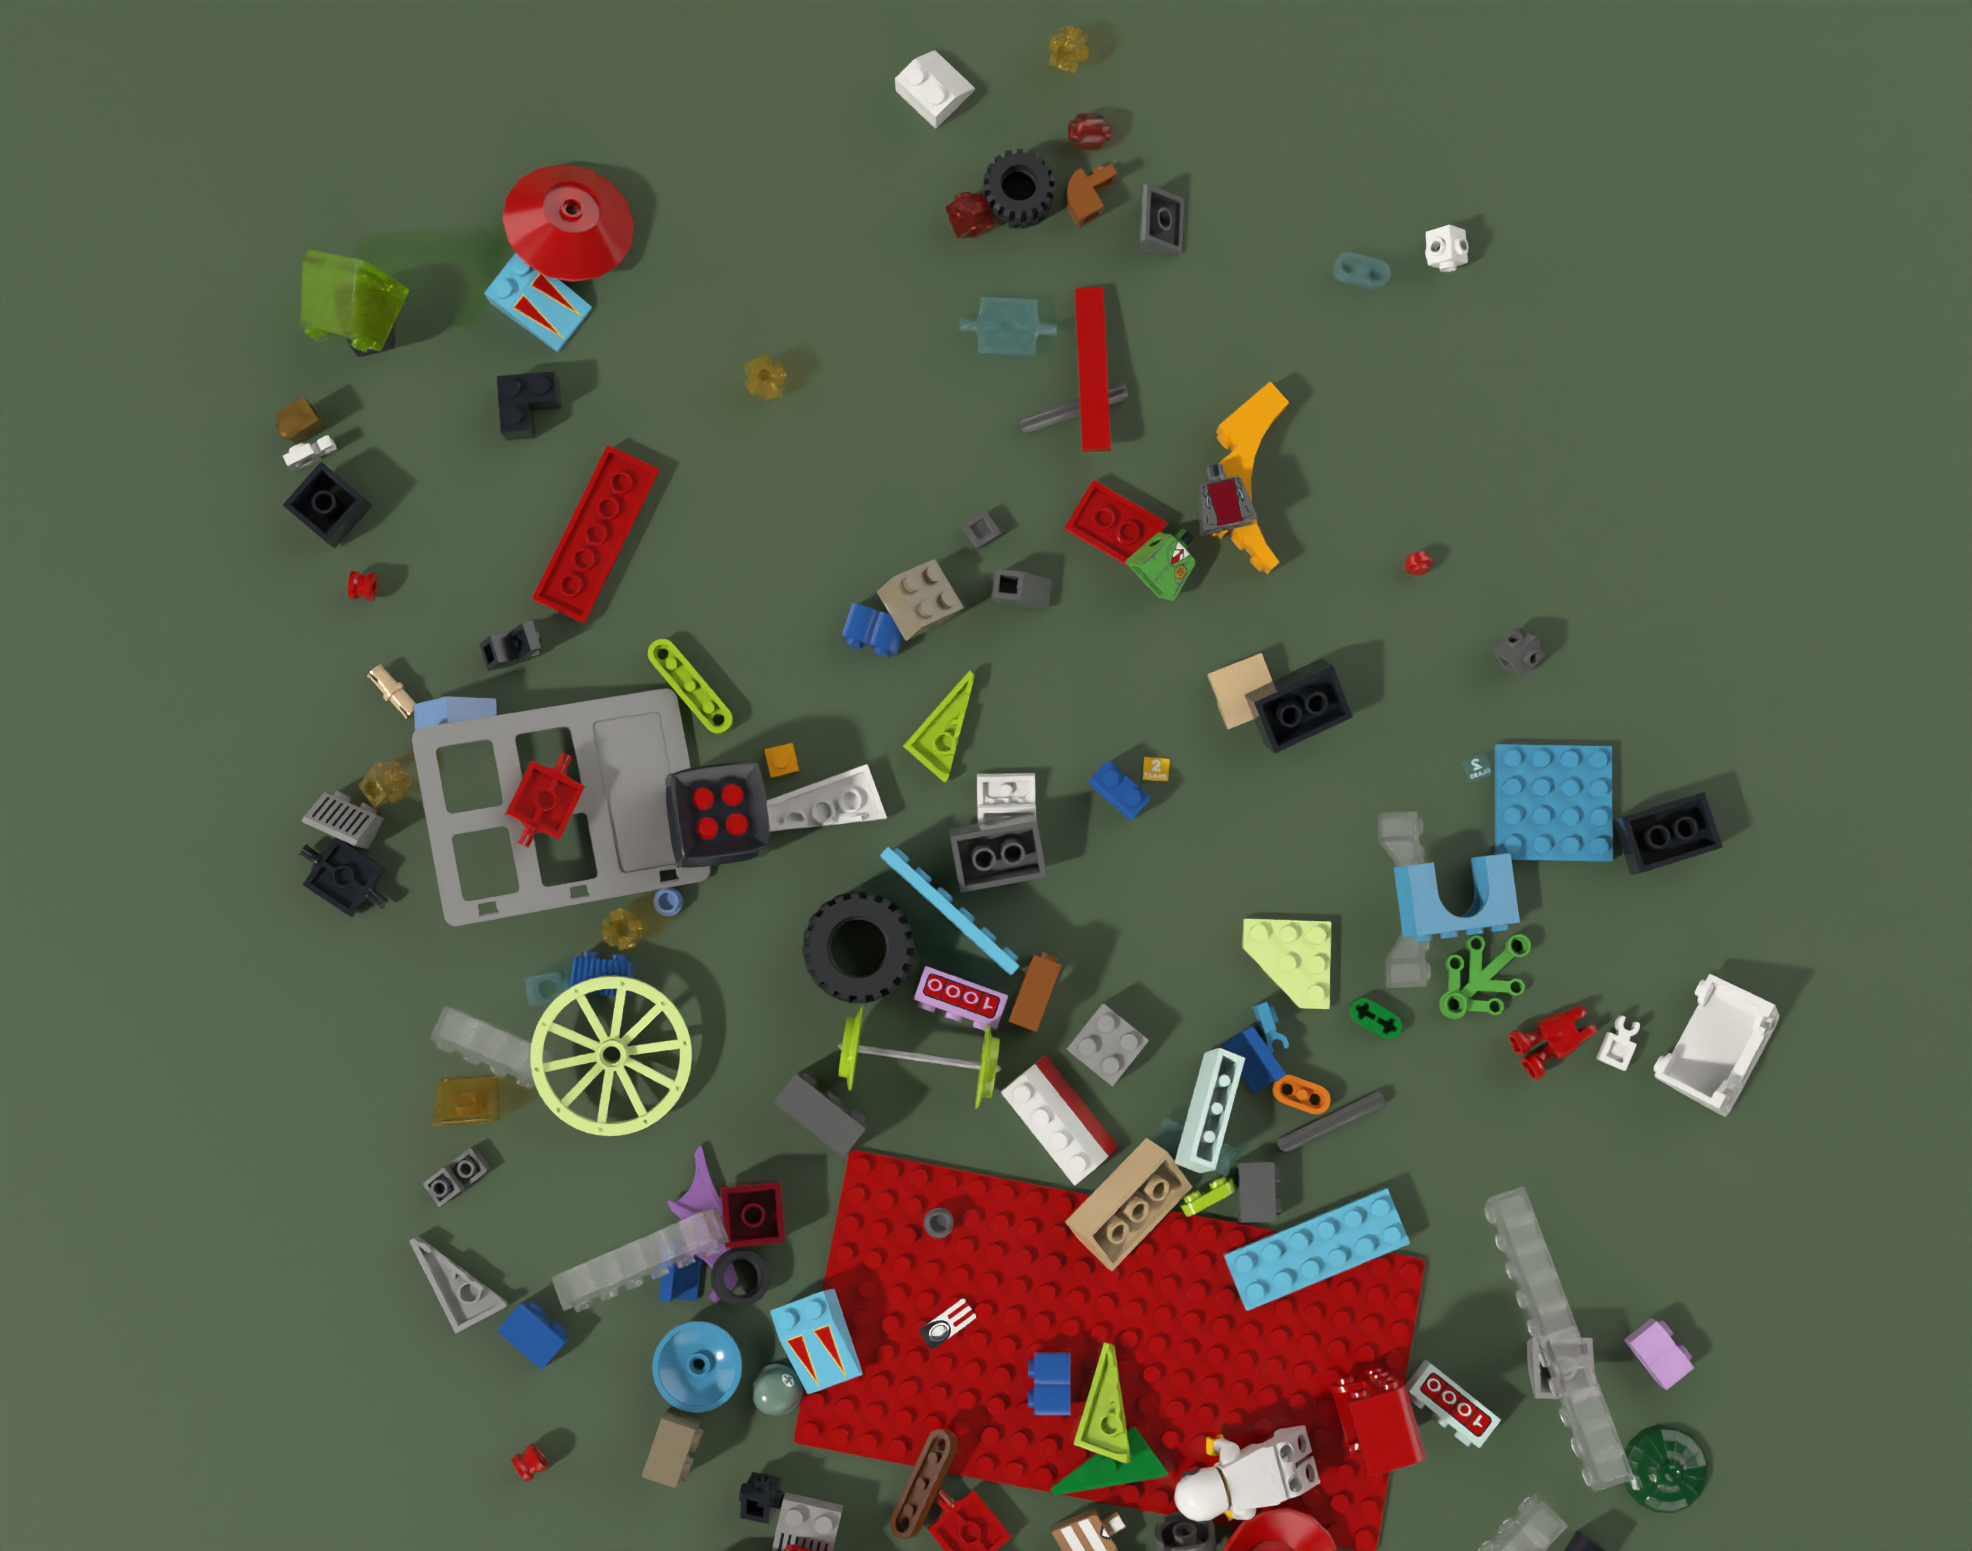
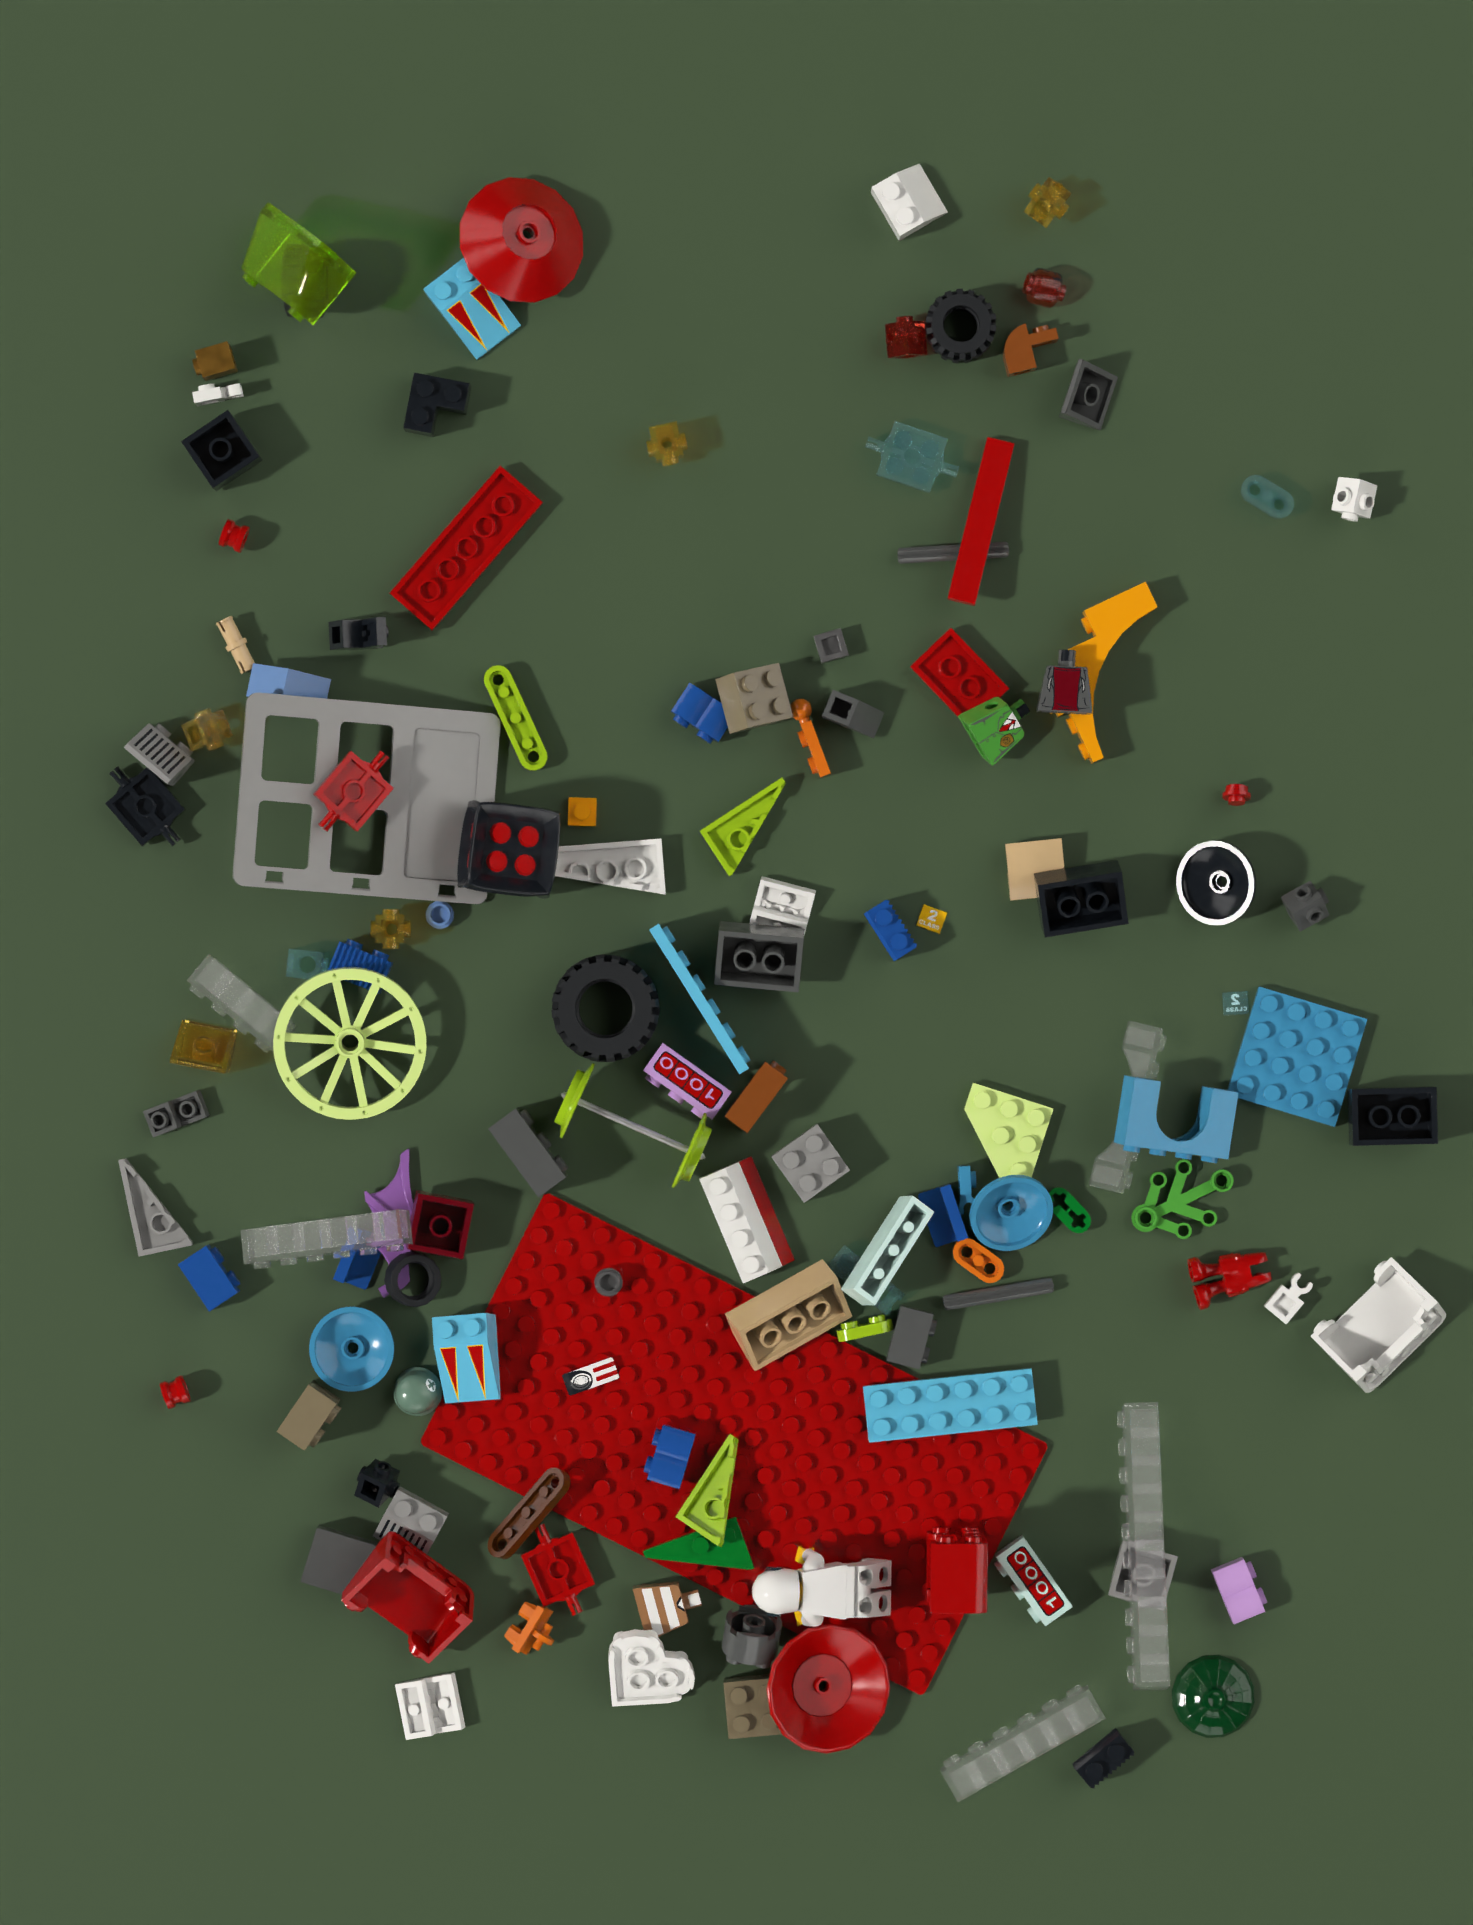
camera: 25 degrees right, 5 degrees up
(985, 625) = (801, 712): none -> orange plate
(1329, 1045) = (1013, 1224): none -> dark azure dish
(1408, 659) = (1201, 885): none -> black dish

